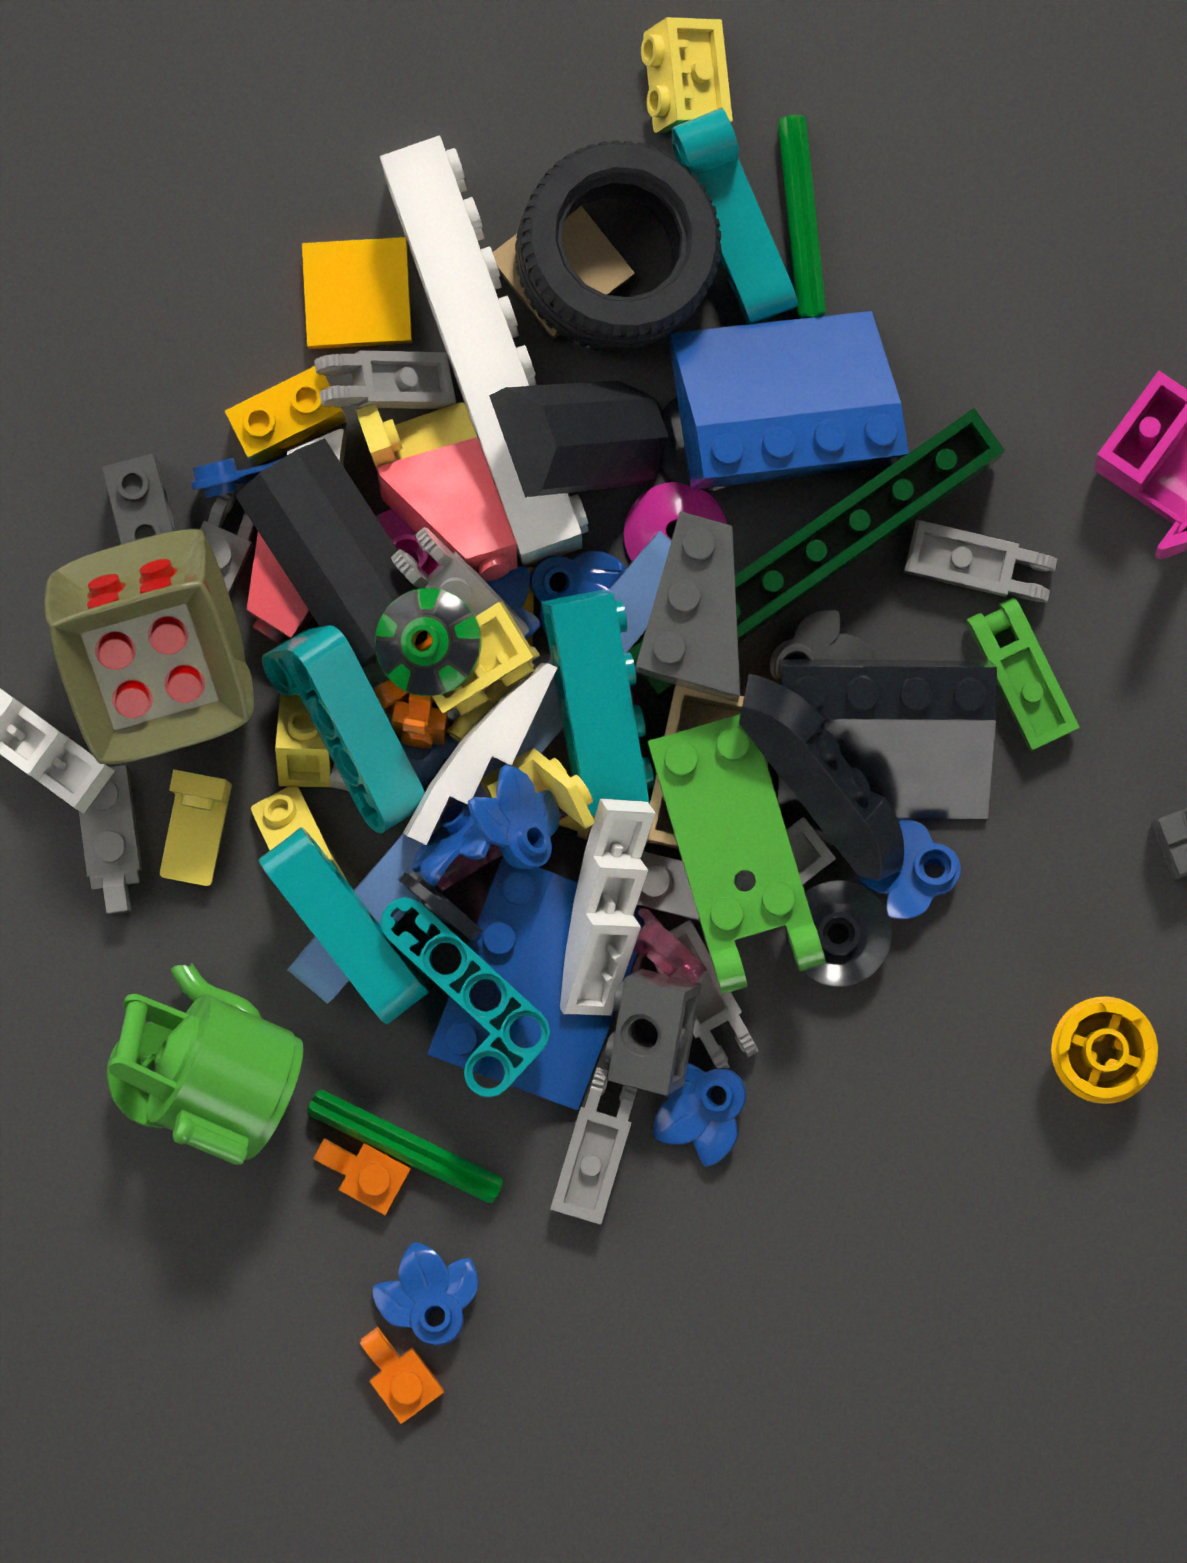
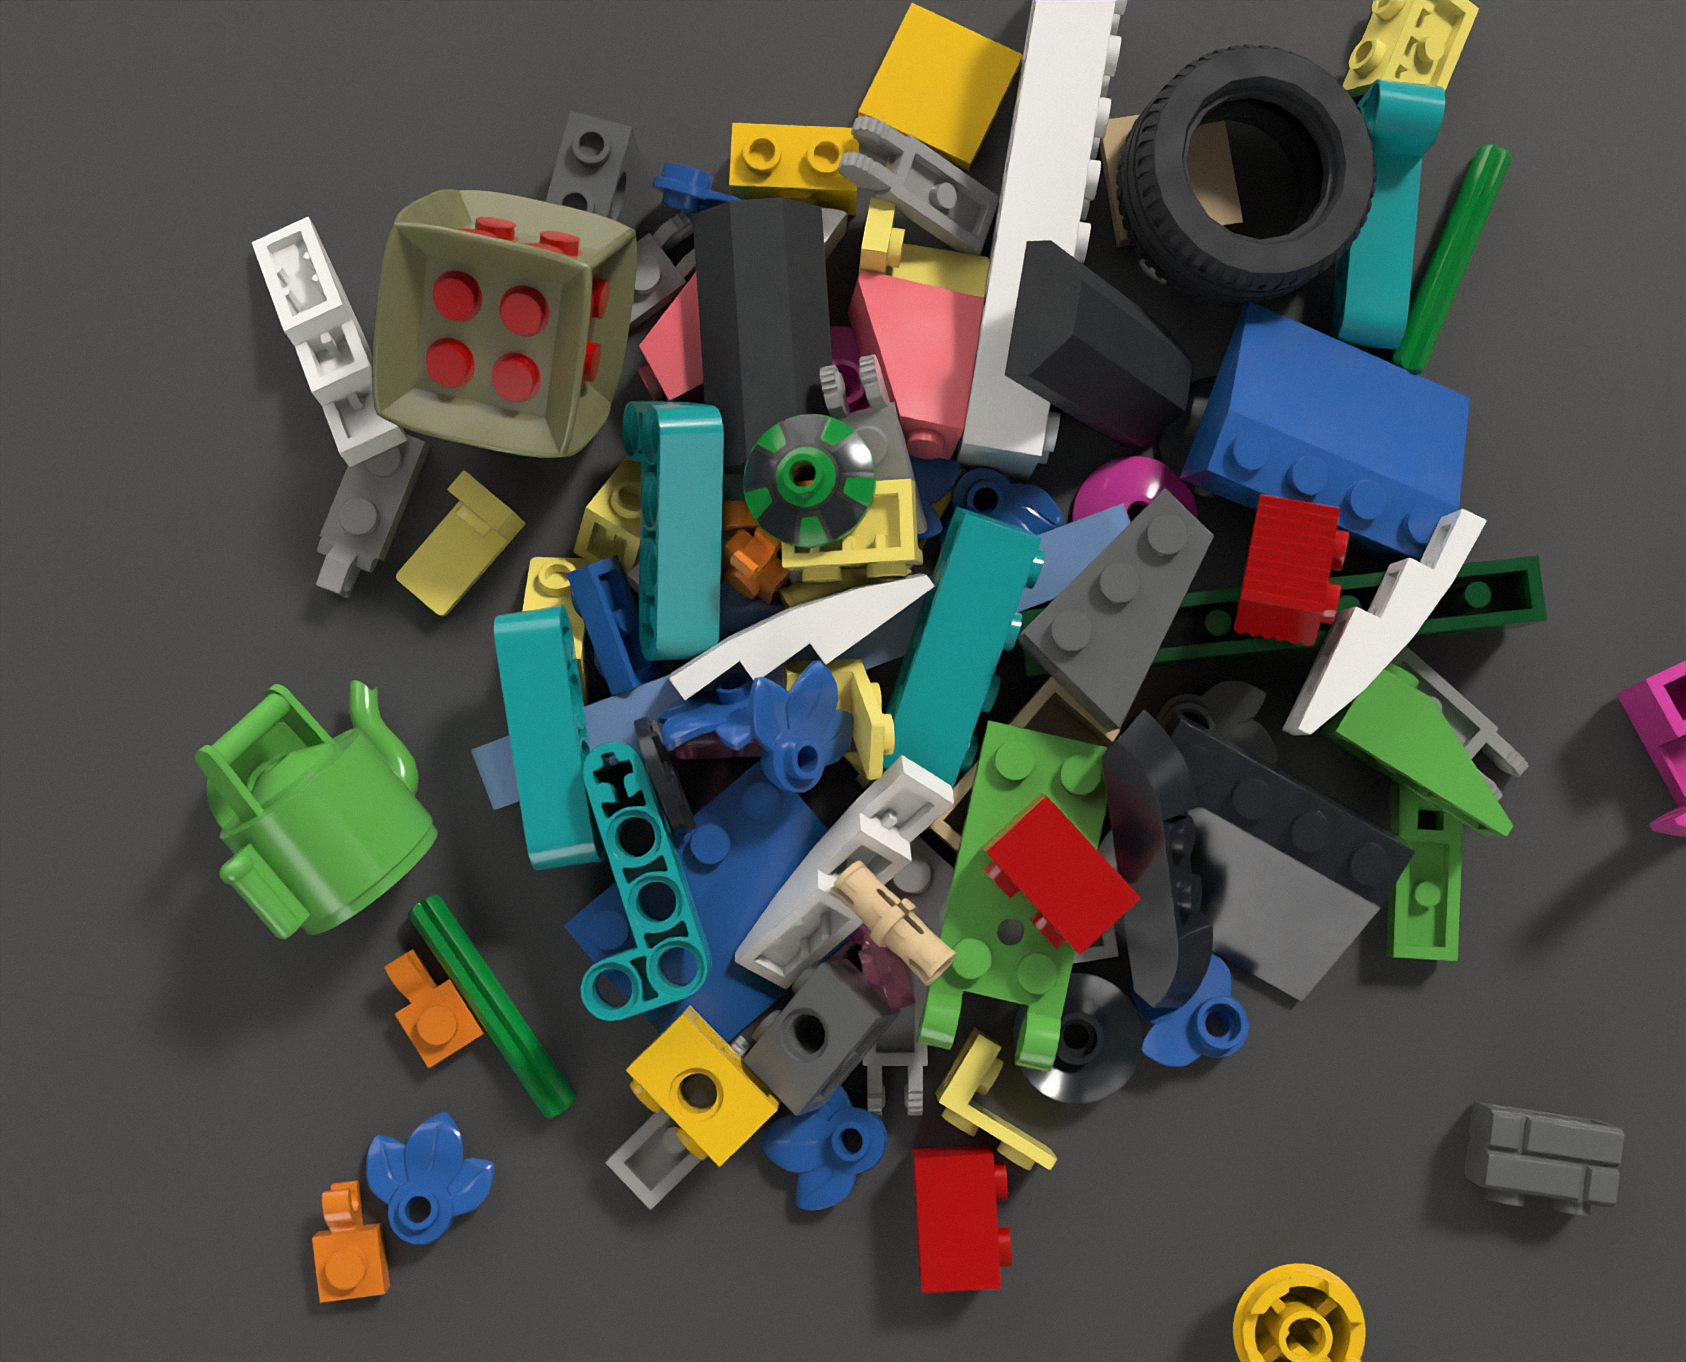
camera: 25 degrees right, 0 degrees up
(339, 819) = (612, 620): none -> blue plate
(622, 1109) = (696, 1048): none -> yellow brick
(658, 918) = (893, 922): none -> tan pin
(753, 820) = (1060, 874): none -> red brick
(779, 996) = (976, 1071): none -> light yellow bracket
(799, 517) = (1289, 570): none -> red brick
(823, 1107) = (958, 1217): none -> red brick
(882, 539) = (1366, 642): none -> white slope
(954, 590) = (1414, 745): none -> bright green slope

